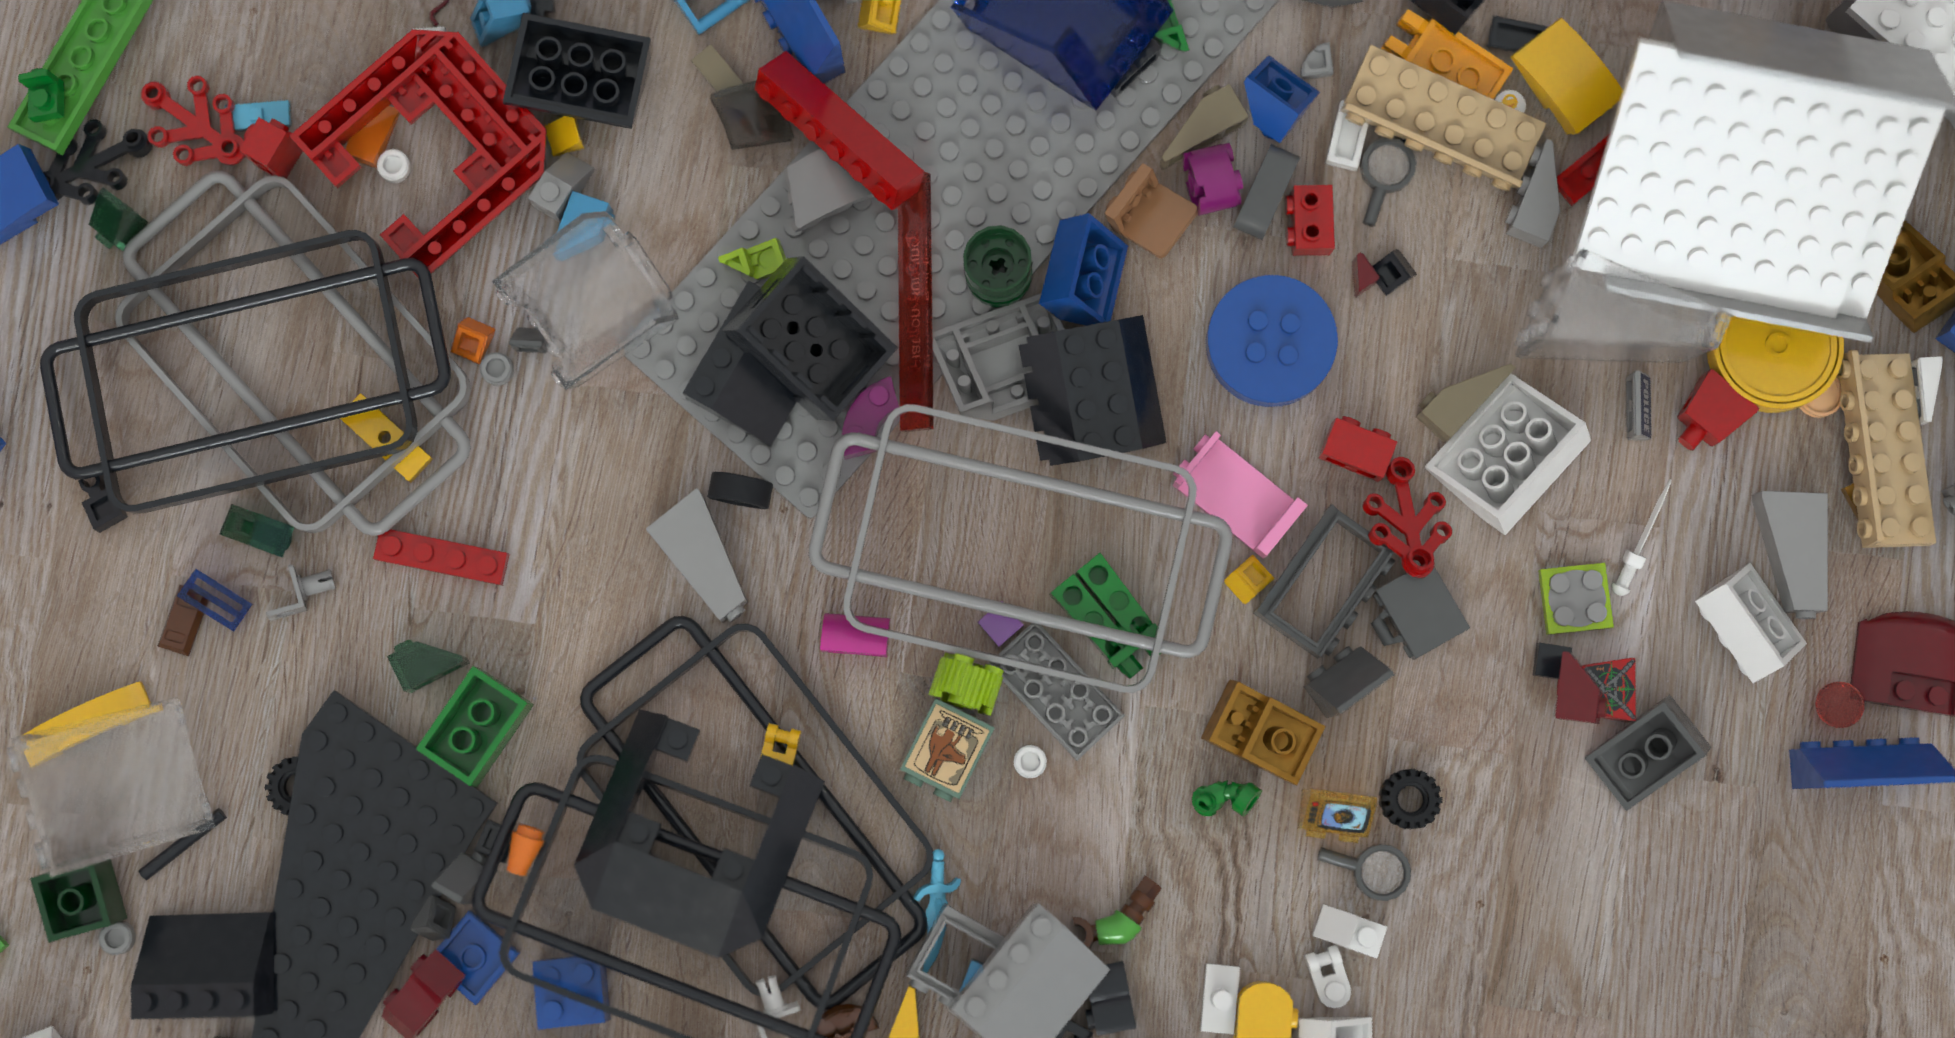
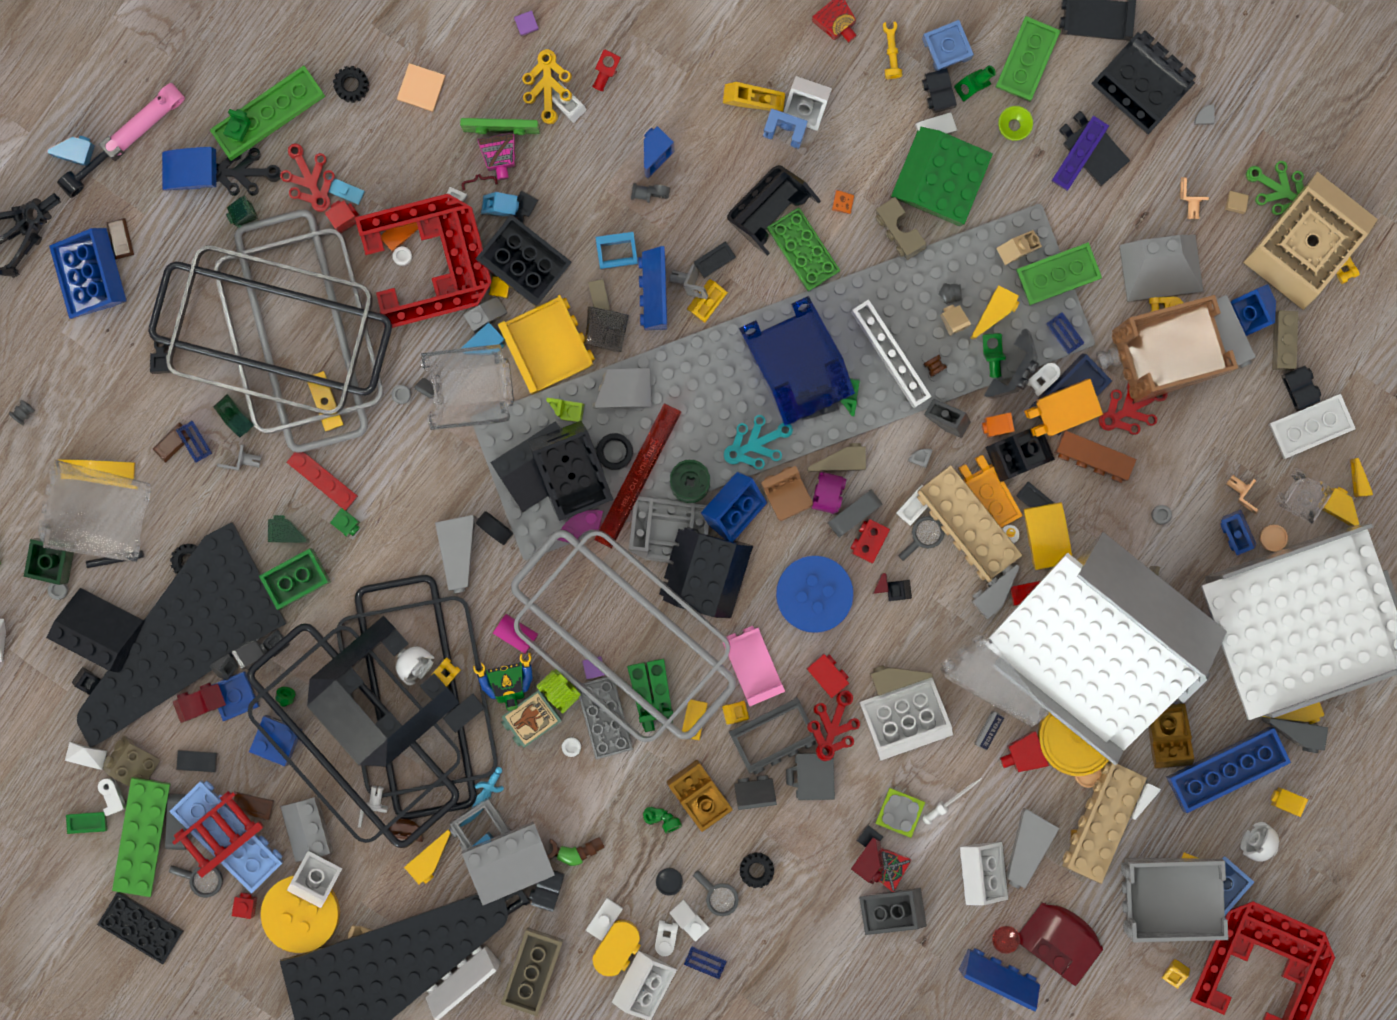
camera: 30 degrees right, 5 degrees up
(472, 339) = (396, 372): orange slope -> none
(510, 603) = (345, 523): none -> green bracket
(524, 848) = (288, 657): orange cone -> none
(551, 914) = (285, 696): none -> green tile
(678, 183) = (546, 344): none -> yellow panel
(723, 758) = (413, 664): none -> white cylinder
(838, 130) = (644, 364): red brick -> none
(839, 794) = (464, 713): none -> black tile
(876, 263) = (600, 451): none -> black tyre
(880, 713) = (507, 682): none -> torso
(1064, 166) = (755, 444): none -> teal plant
(1187, 614) = (694, 711): none -> yellow tile
(1277, 98) = (888, 465): blue slope -> none
(1287, 888) = (669, 881): none -> black piece
(1337, 814) = (713, 857): clear yellow slope -> none
(1437, 981) = (720, 968): none -> clear blue tile

